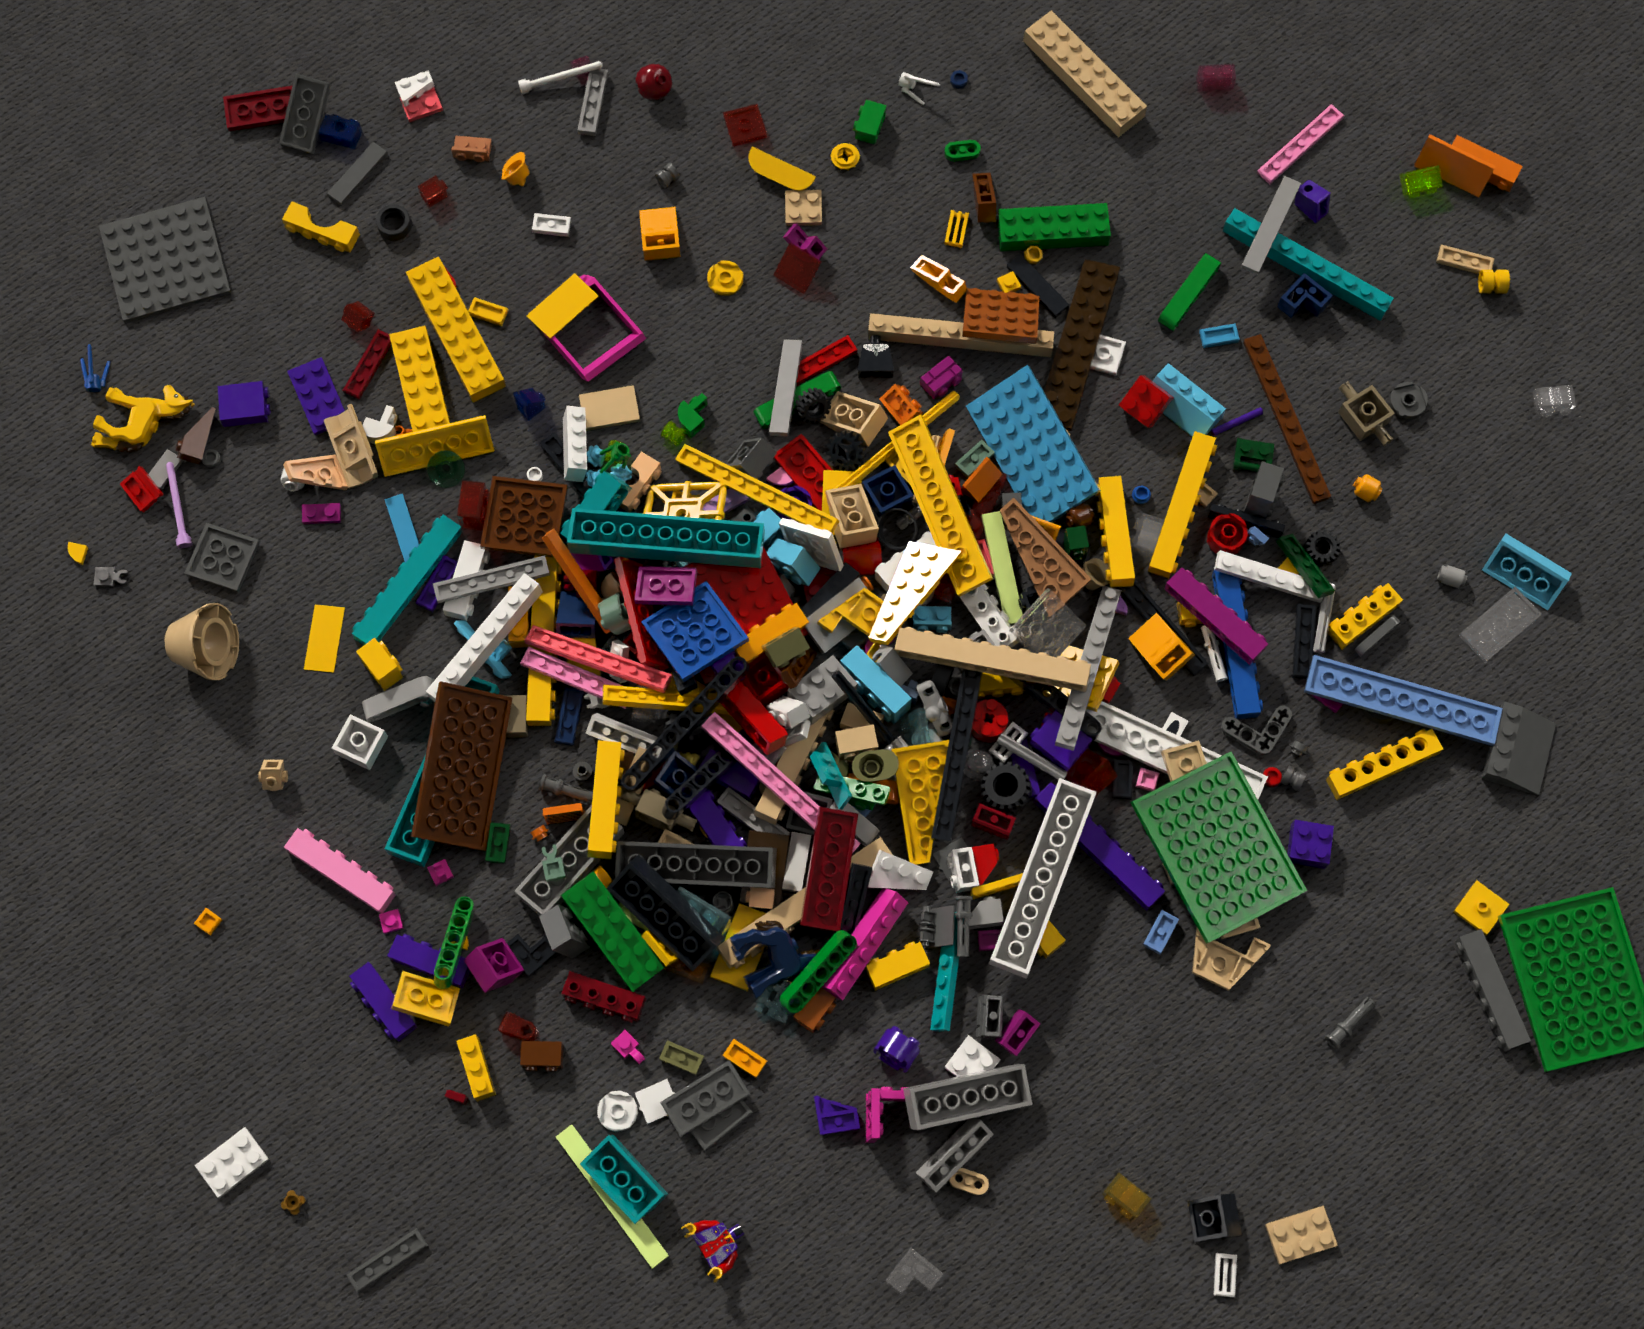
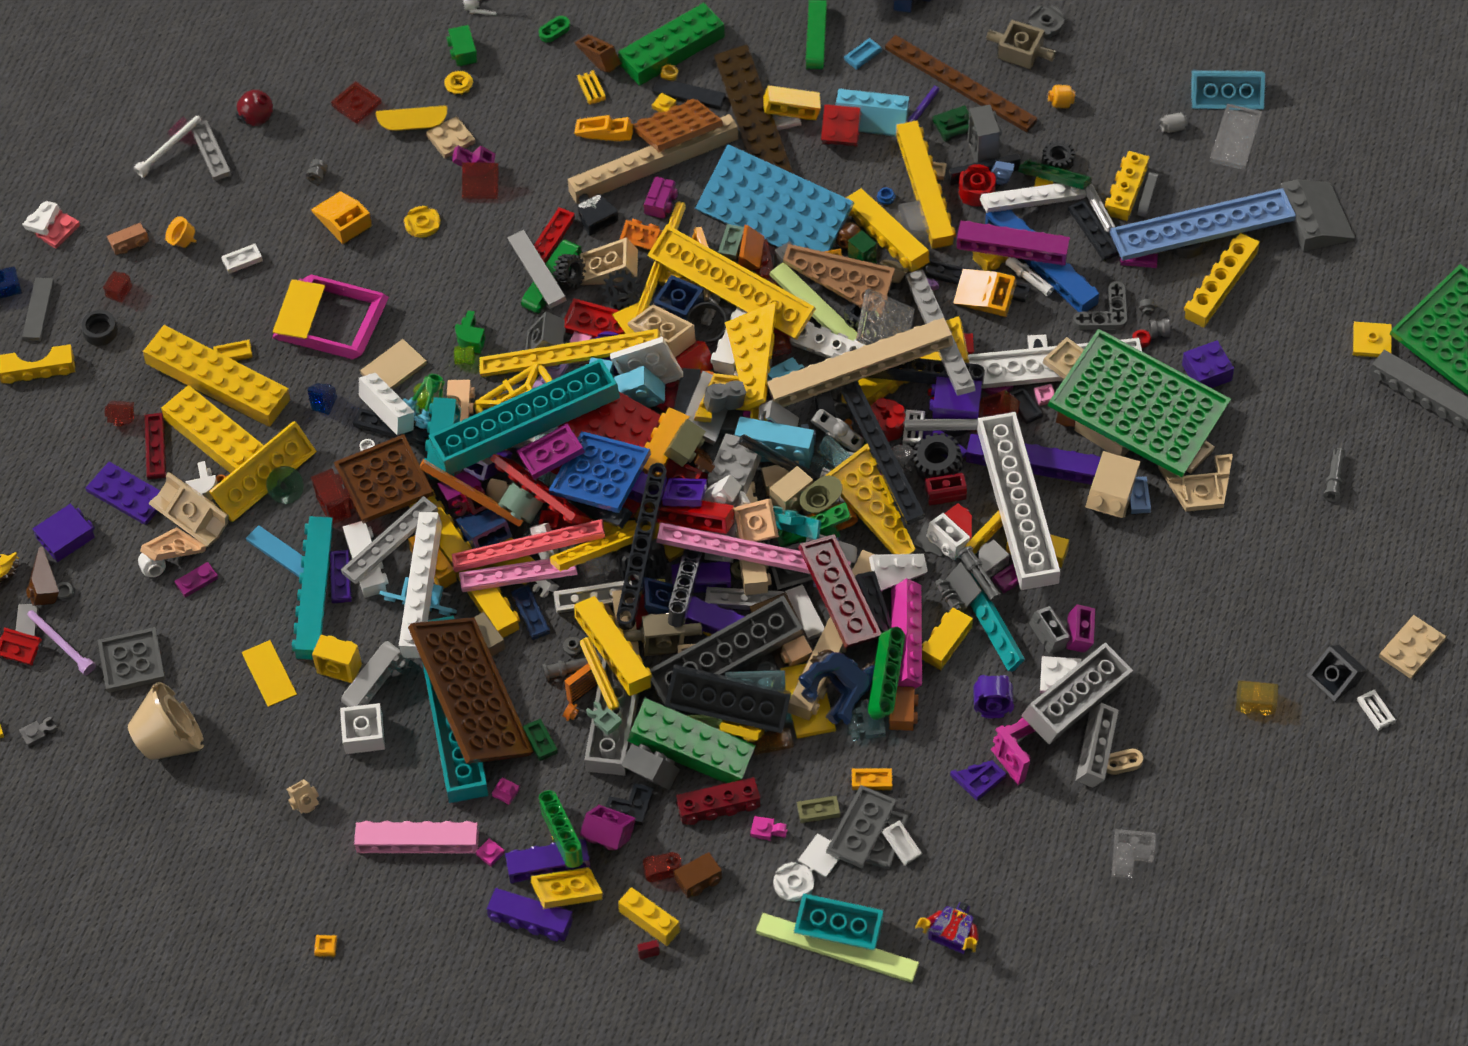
camera: 30 degrees left, 15 degrees down
(574, 821) = (599, 673): none -> yellow axle
(729, 1135) = (902, 842): none -> white tile
(756, 694) = (684, 492): none -> dark purple plate
(799, 759) = (756, 521): none -> light nougat tile
(859, 621) = (726, 396): none -> dark grey brick
(1118, 351) = (792, 102): none -> yellow brick
(1139, 912) = (1113, 484): none -> tan slope

